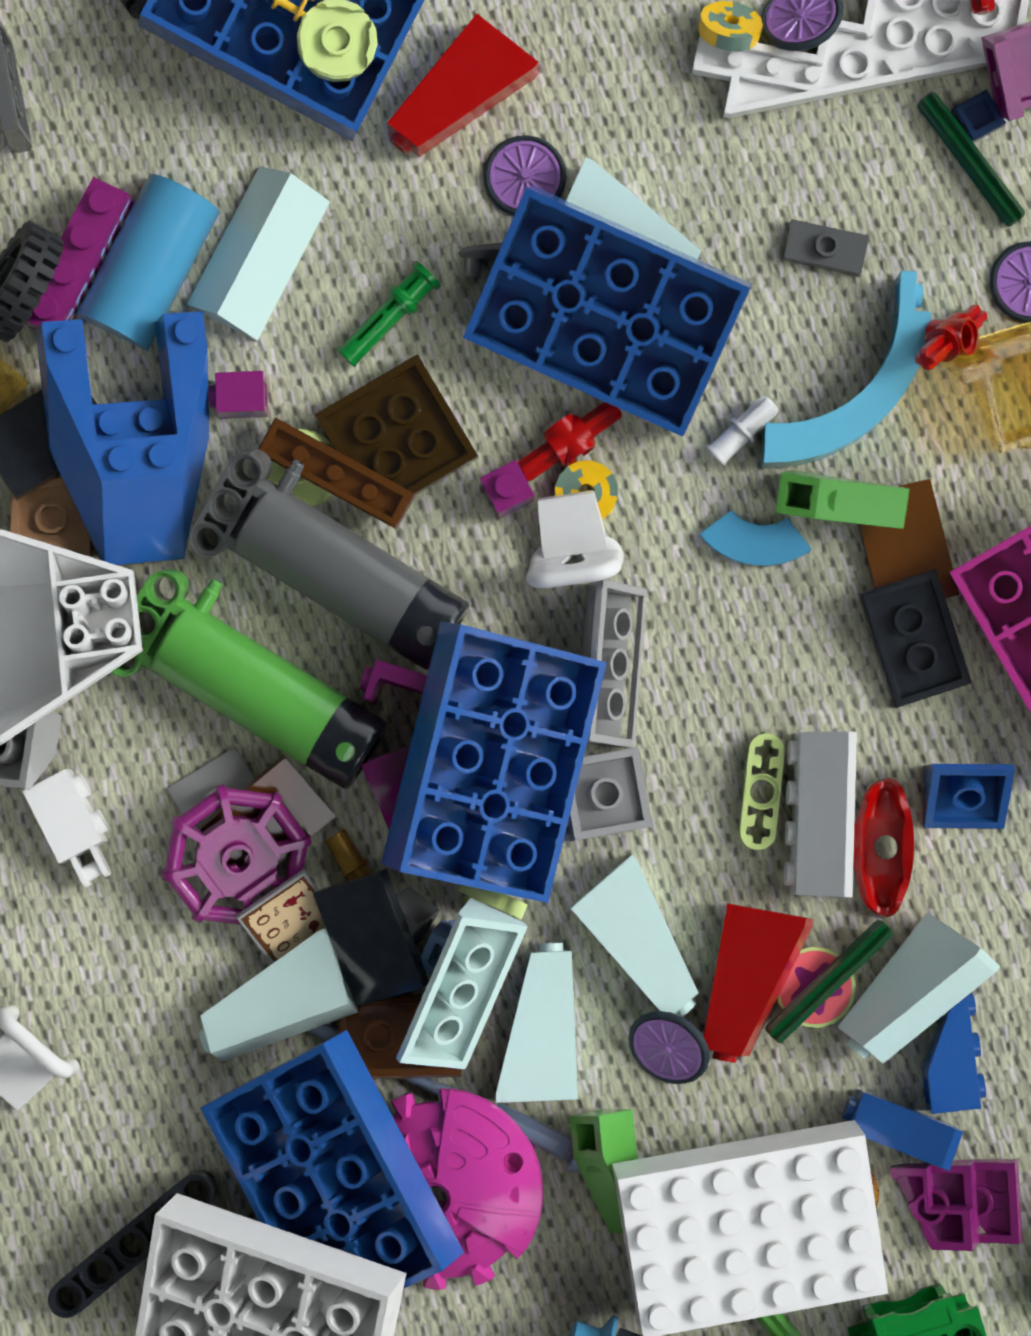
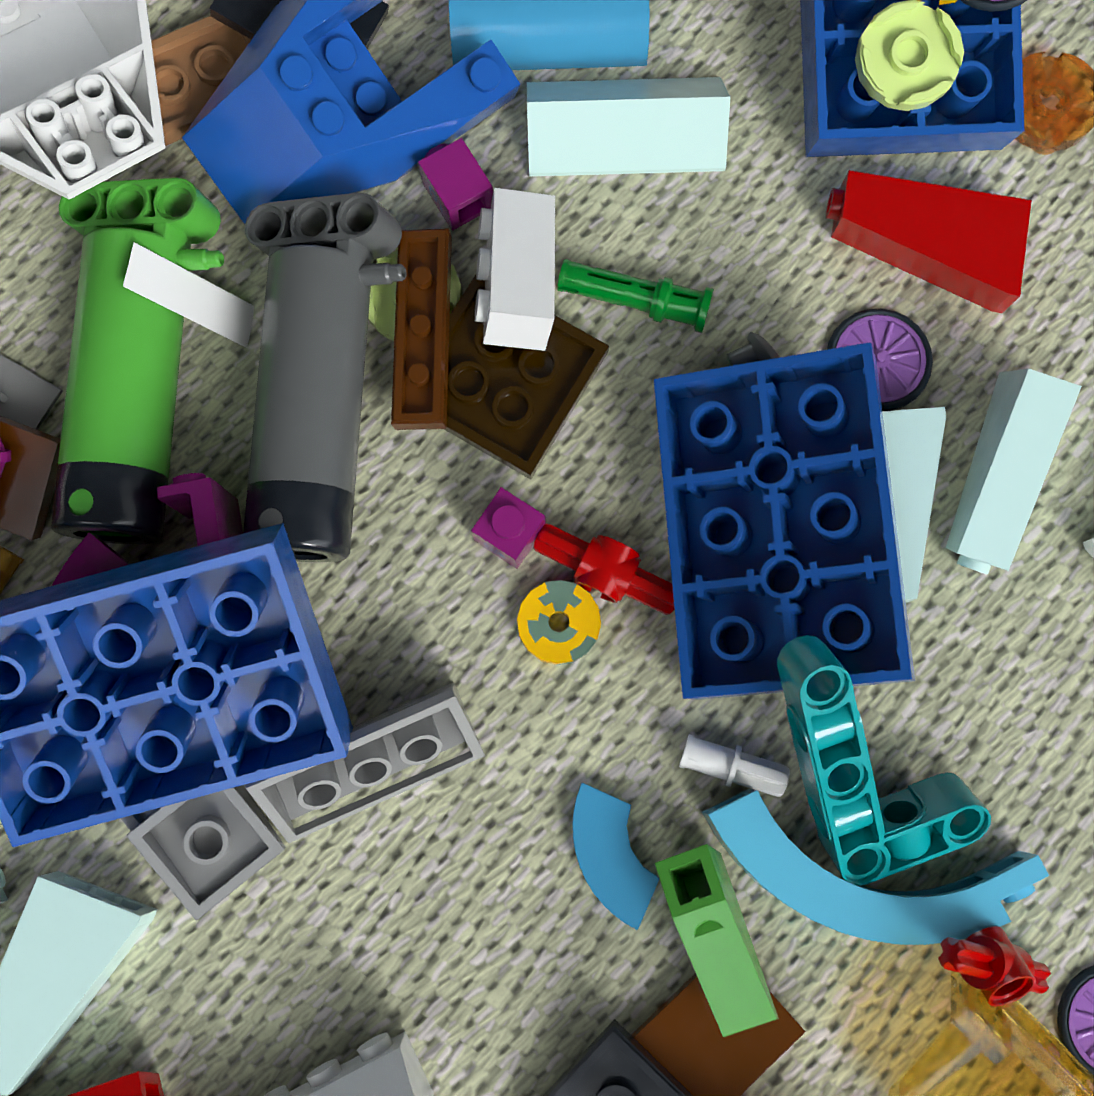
camera: 60 degrees right, 5 degrees down
(230, 616) = (188, 295): none -> white sticker
(332, 385) = (517, 269): none -> white brick
(571, 527) = (502, 622): white piece -> none
(648, 138) = (1010, 466): none -> light aqua slope
(773, 763) = (266, 1033): yellowish green beam -> none
(821, 375) = (859, 831): none -> teal beam
(825, 247) = (1006, 746): dark grey plate -> none

